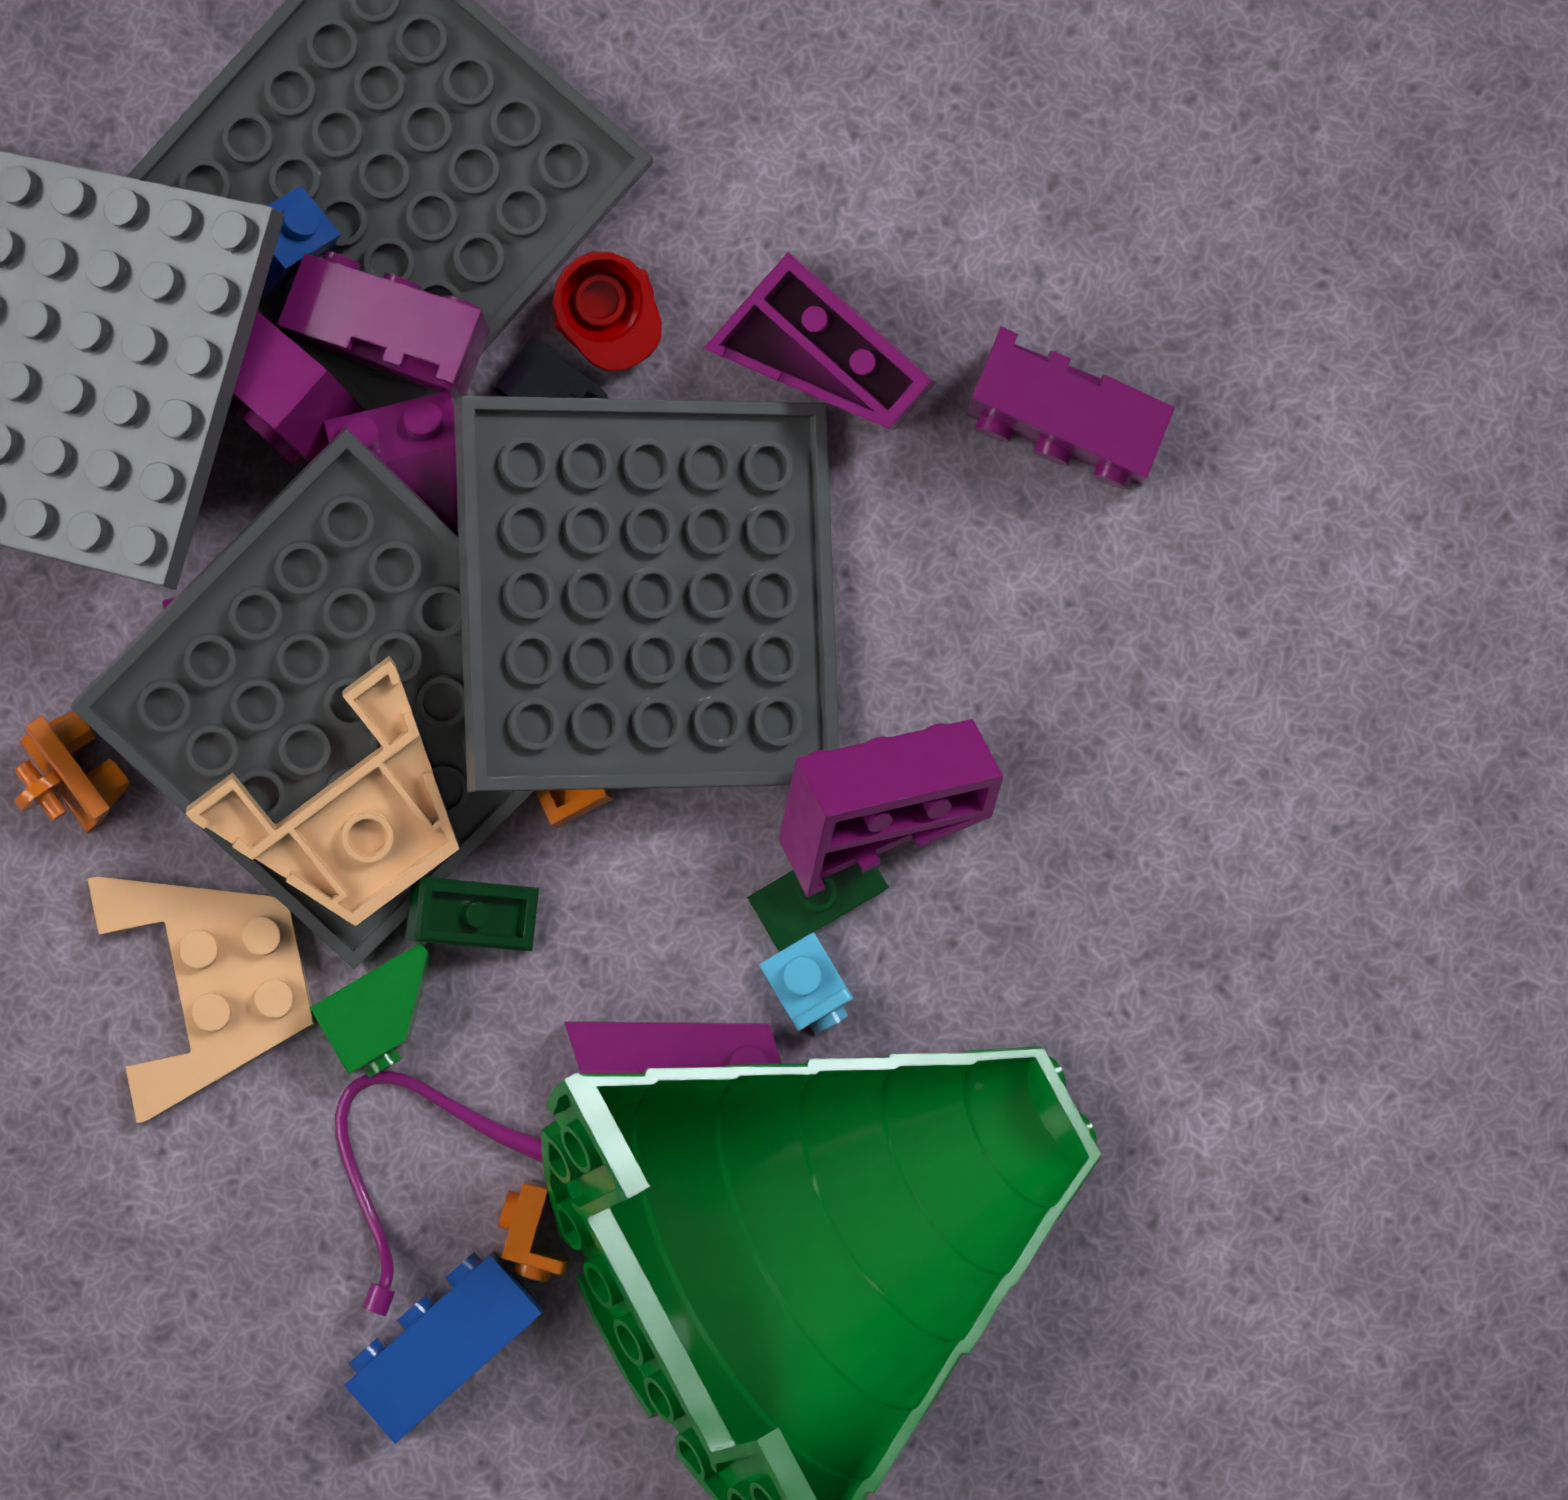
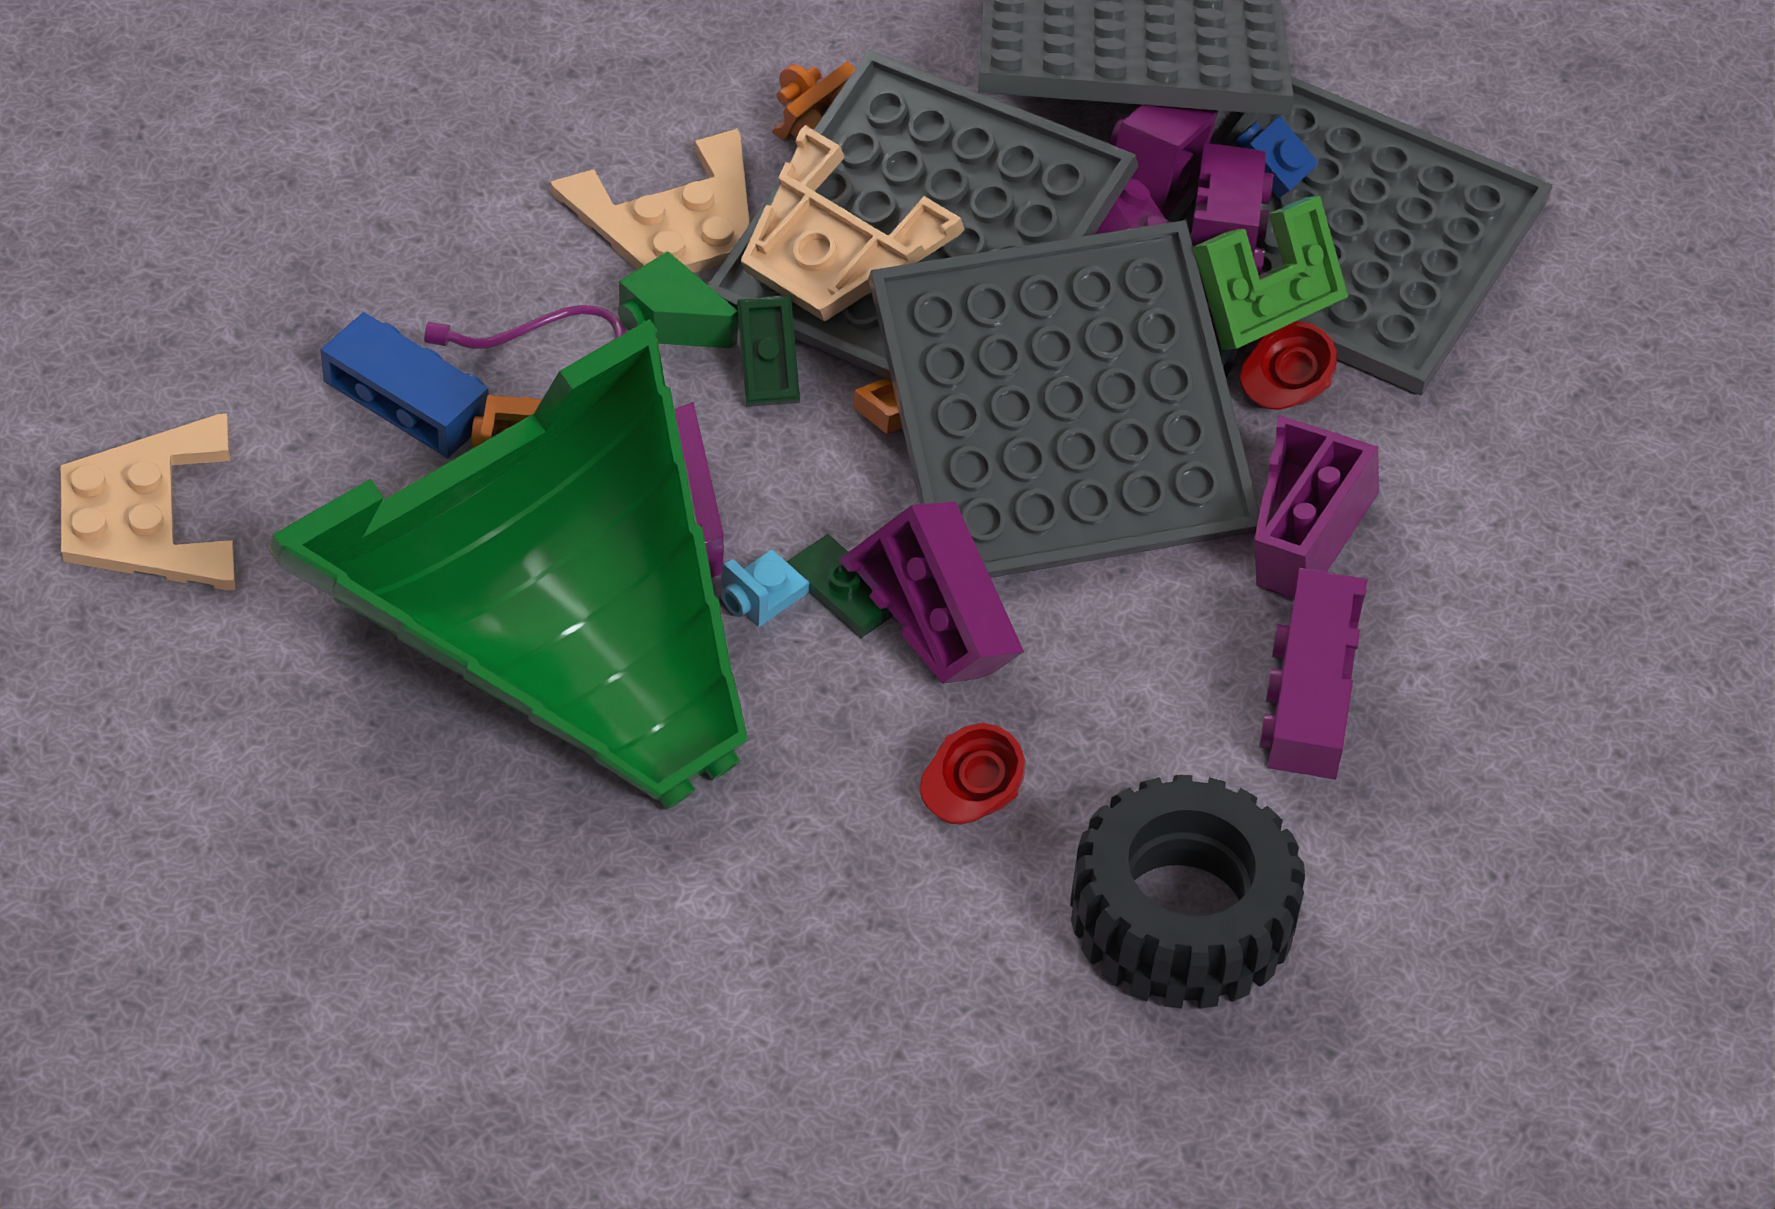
camera: 80 degrees right, 35 degrees down
(544, 341) = (1253, 304): none -> bright green plate
(1122, 811) = (973, 774): none -> red hat
(1392, 572) = (1174, 951): none -> black tyre

